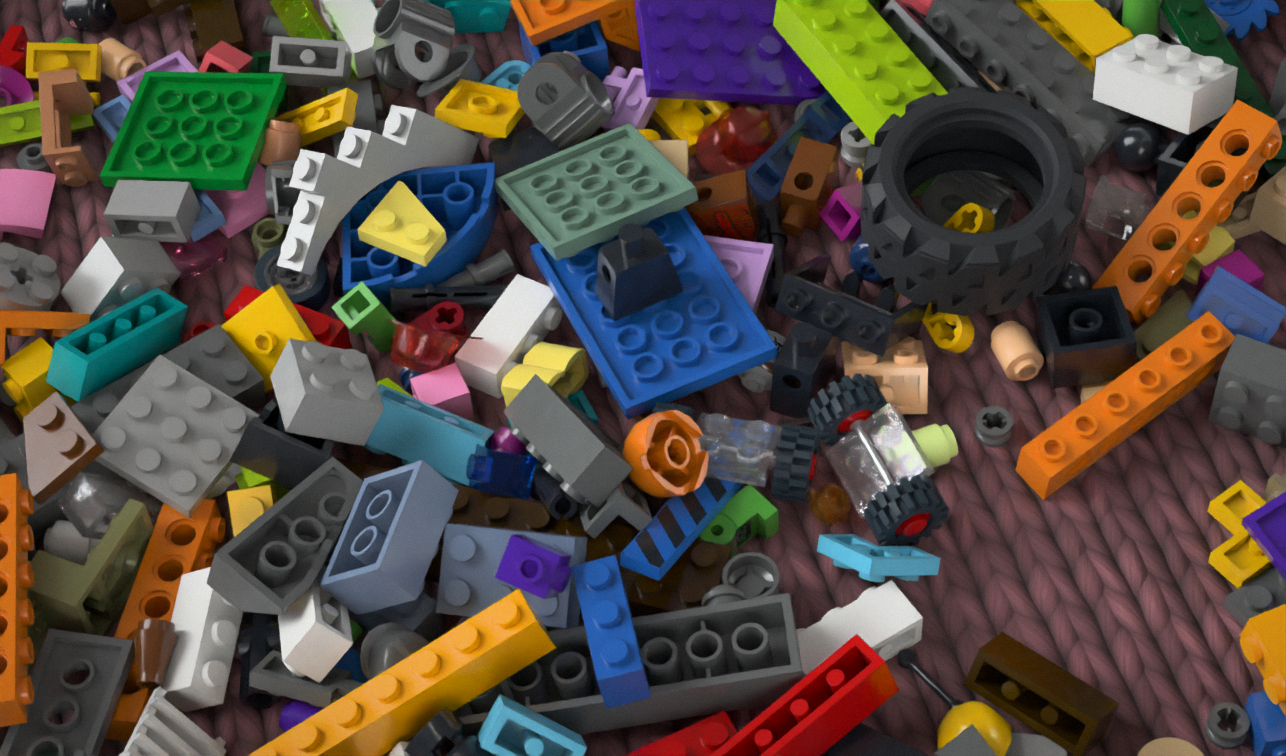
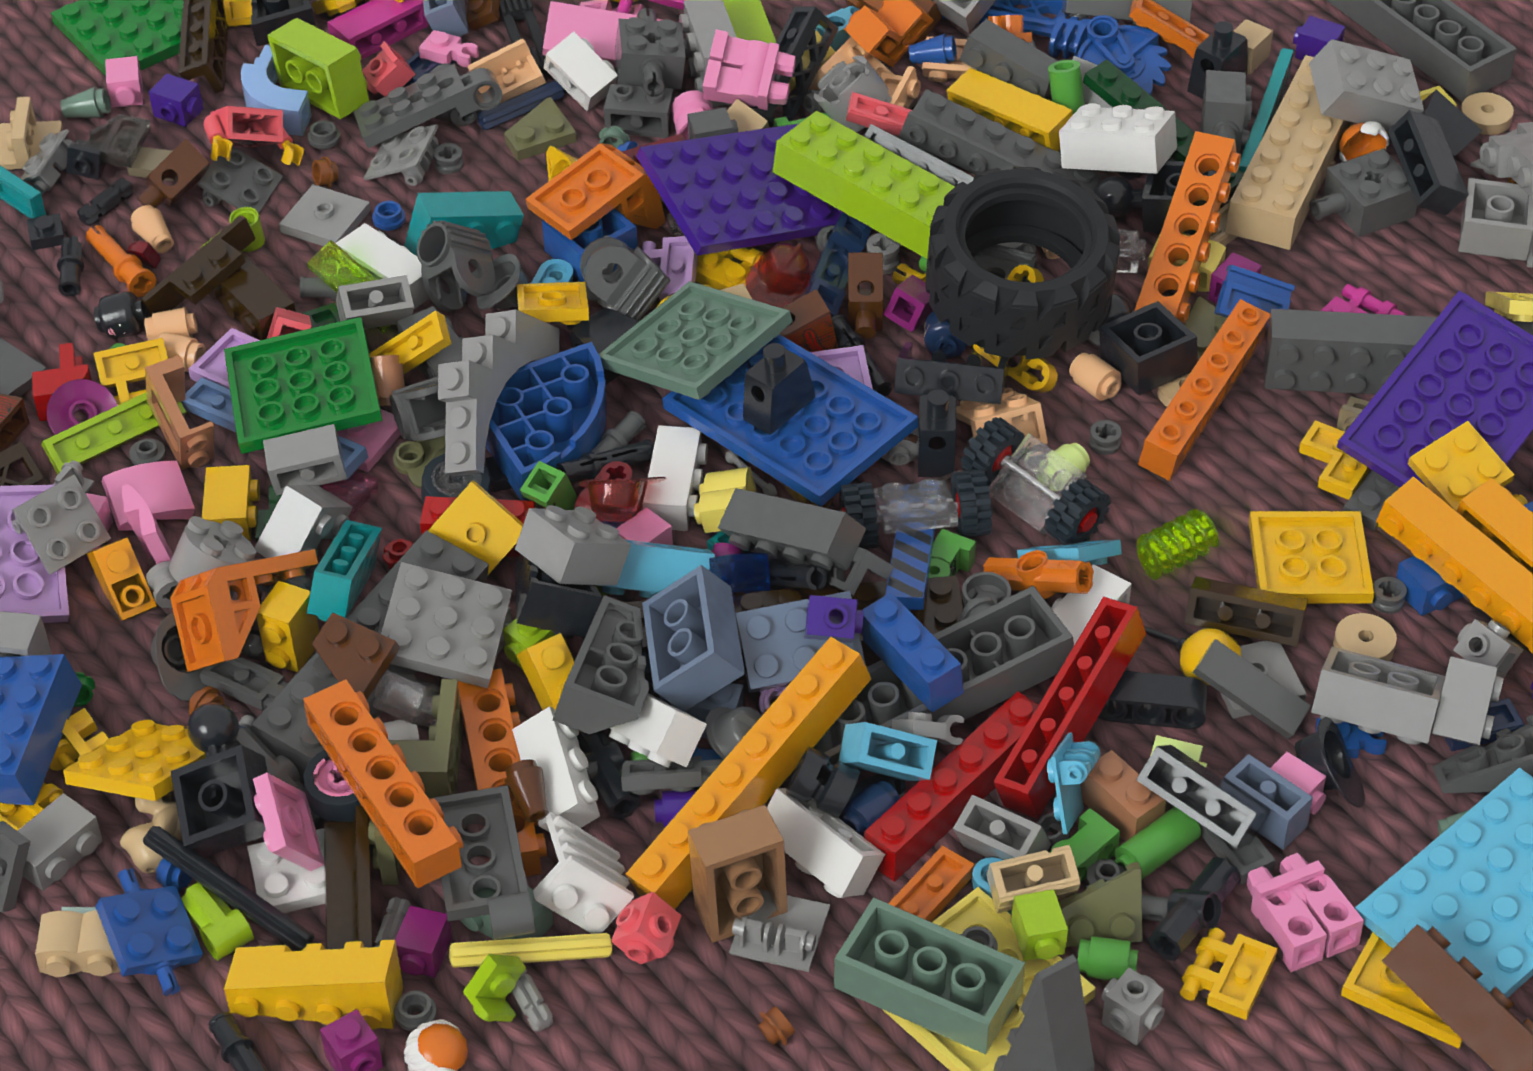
camera: 25 degrees left, 5 degrees down
(72, 231) = (231, 496): none -> yellow brick
(131, 31) = (171, 321): none -> light nougat brick
(403, 227) = (547, 410): light yellow wing -> none
(585, 724) = (922, 725): none -> light grey plate
(666, 454) = (876, 510): orange cylinder -> none
(823, 575) = (1044, 574): none -> orange piece
(829, 503) = (1009, 528): clear orange plate -> none
(1002, 581) = (1175, 543): none -> clear neon green piece
(1156, 648) = (1312, 555): none -> yellow plate

